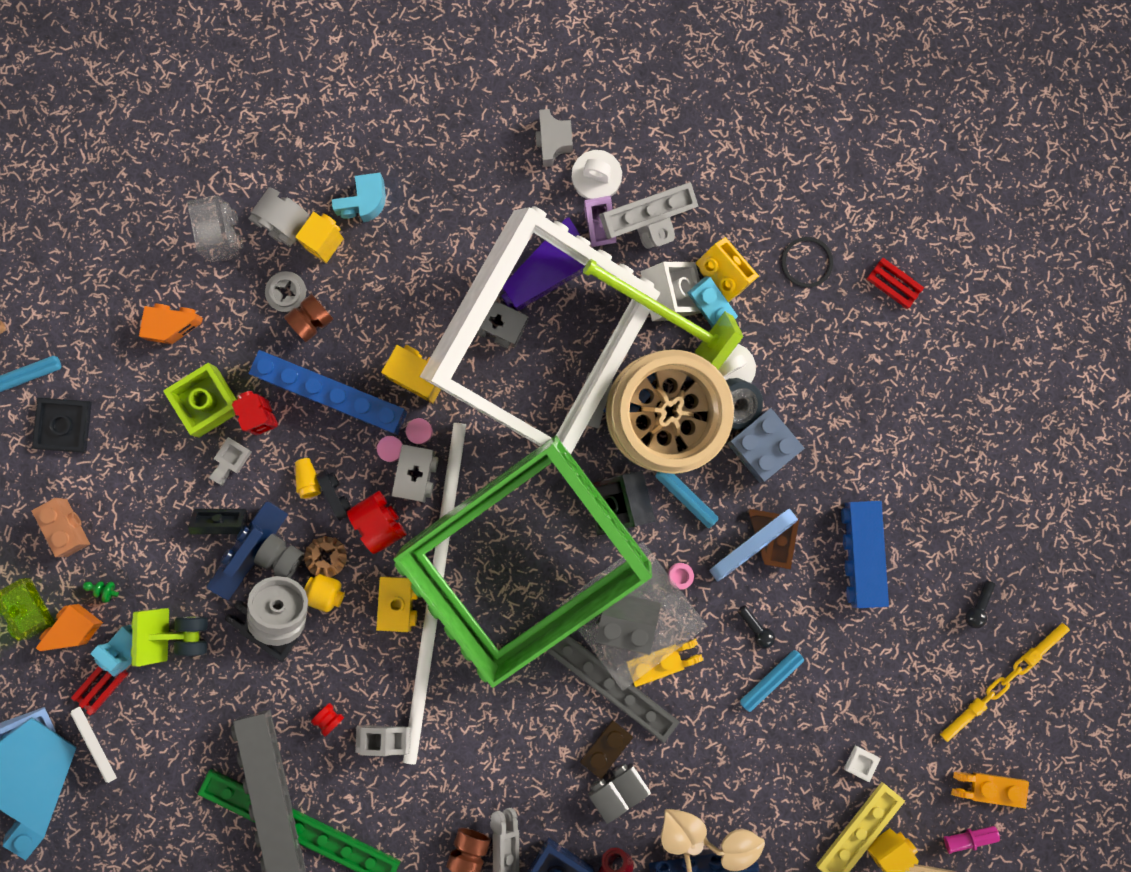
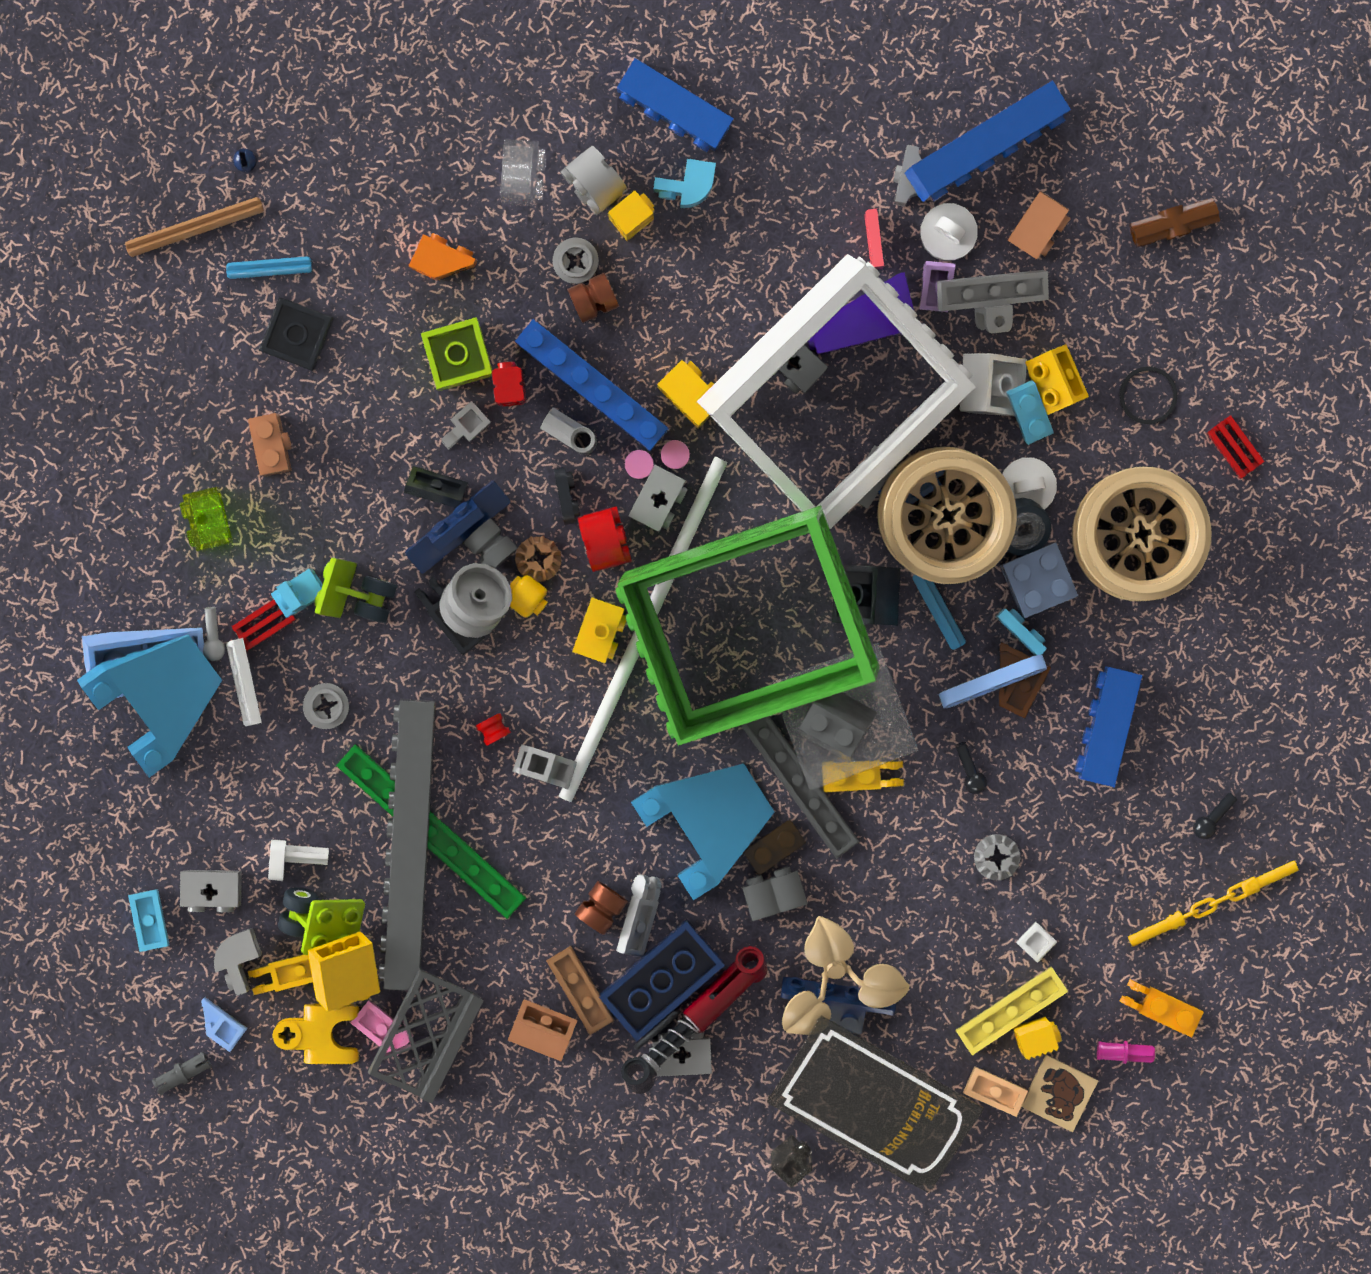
camera: 20 degrees right, 5 degrees up
(62, 721) = (213, 647): none -> light grey bar
(73, 628) = (252, 556): orange slope -> none
(99, 589) = (290, 522): green hair -> none
(162, 740) = (320, 718): none -> light grey gear
(306, 480) = (541, 471): yellow cone -> none
(320, 438) = (567, 430): none -> light grey piece
(332, 136) = (674, 105): none -> blue brick
(532, 192) = (874, 238): none -> coral tile
(547, 737) = (717, 813): none -> dark azure wedge
(605, 87) = (988, 141): none -> blue brick
(671, 145) = (1039, 225): none -> nougat brick
(681, 575) = (908, 690): bright pink tile -> none
(715, 345) = (1019, 457): lime tile -> none
(755, 489) = (1013, 622): none -> medium azure plate
(772, 680) = (969, 828): dark azure axle -> none
(784, 110) = (1174, 222): none -> reddish brown piece
(792, 695) = (986, 848): none -> light grey gear
(878, 354) = (1189, 524): none -> tan wheel

